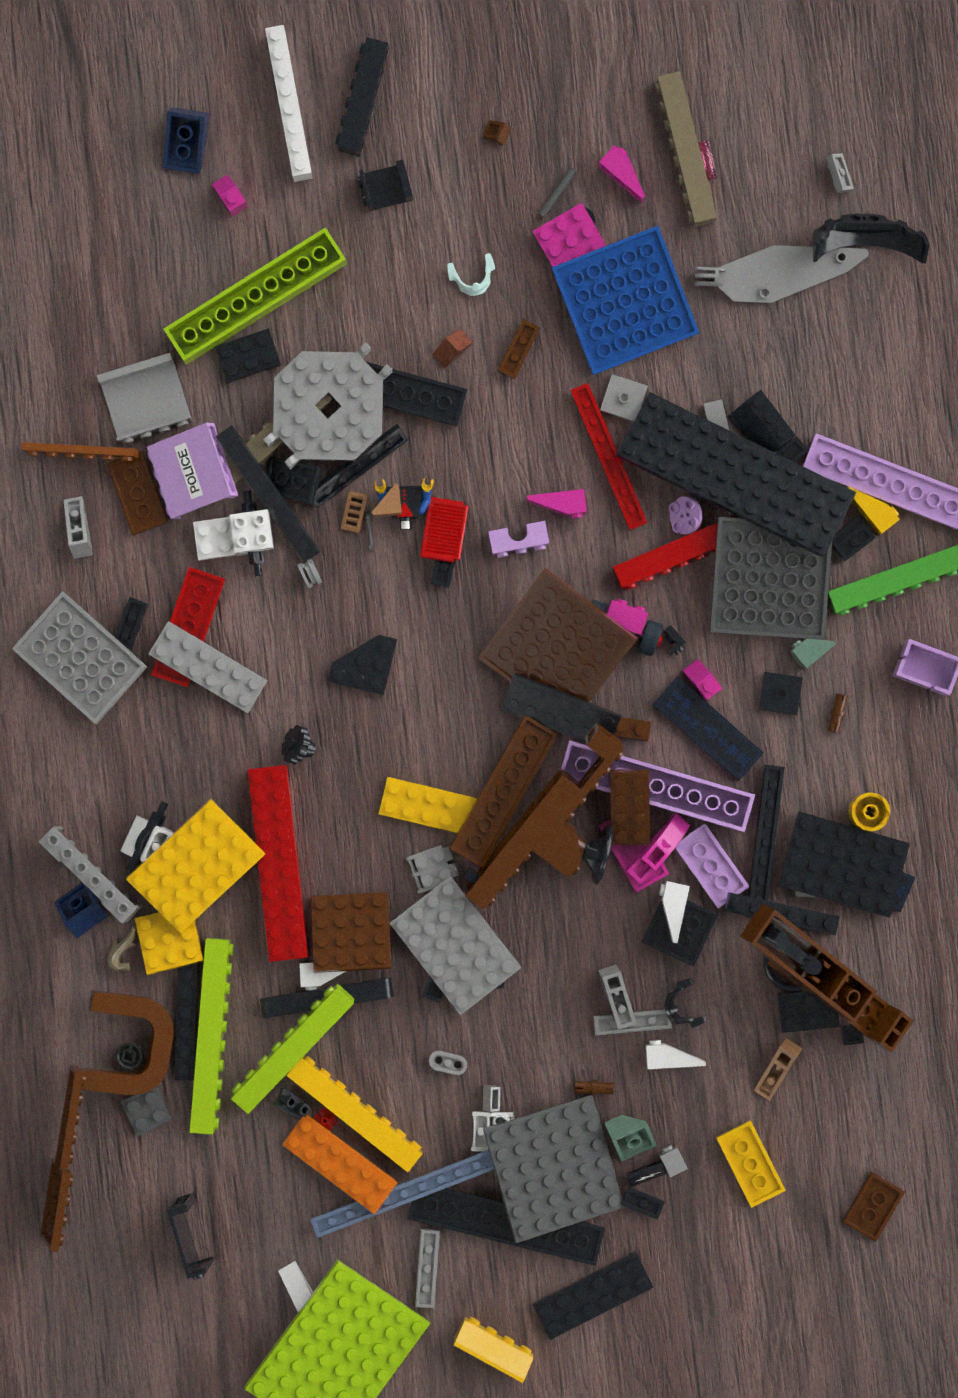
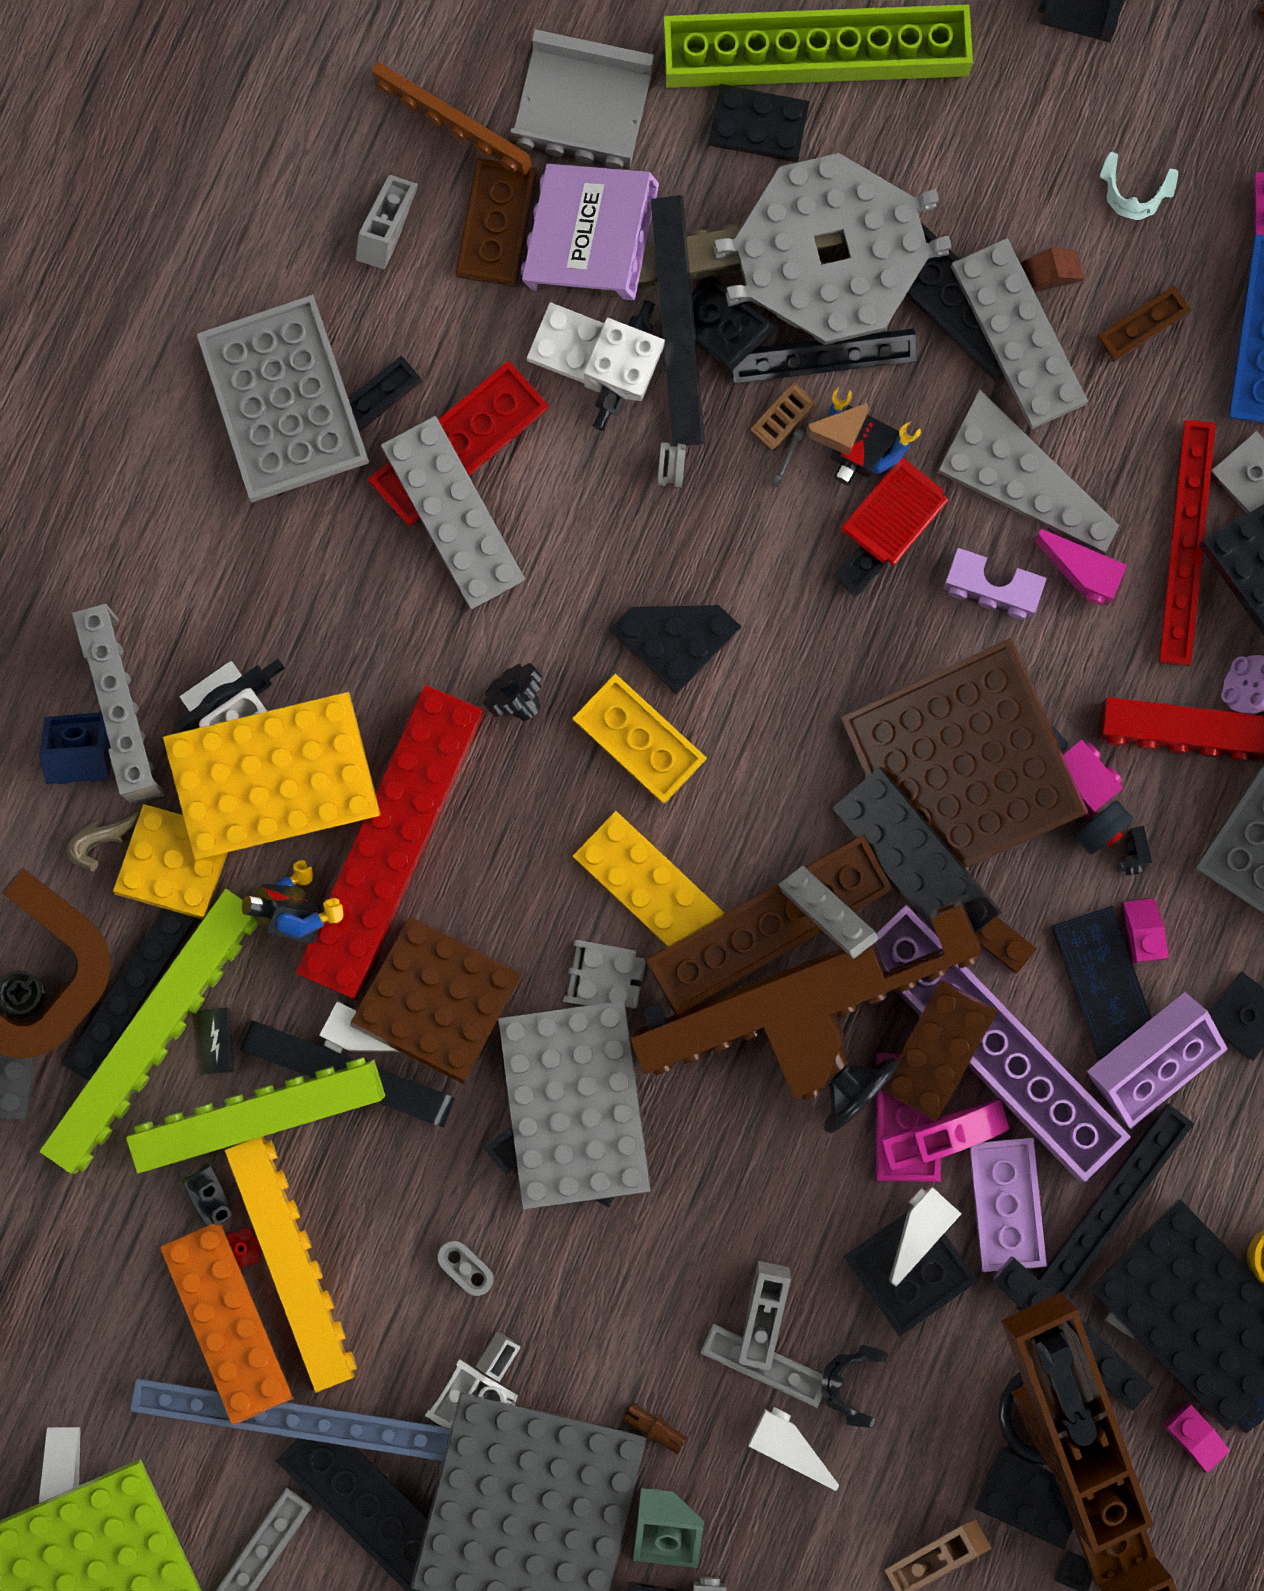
camera: 30 degrees right, 5 degrees down
(245, 931) = (288, 910): none -> torso
(247, 1020) = (216, 1041): none -> black slope
(377, 731) = (639, 739): none -> yellow plate
(455, 394) = (1019, 333): none -> light grey plate
(494, 470) = (1008, 467): none -> light grey wing
(531, 770) = (828, 912): none -> light grey plate
(746, 745) = (1158, 1059): none -> lavender slope
(875, 929) = (1196, 1436): none -> dark pink slope

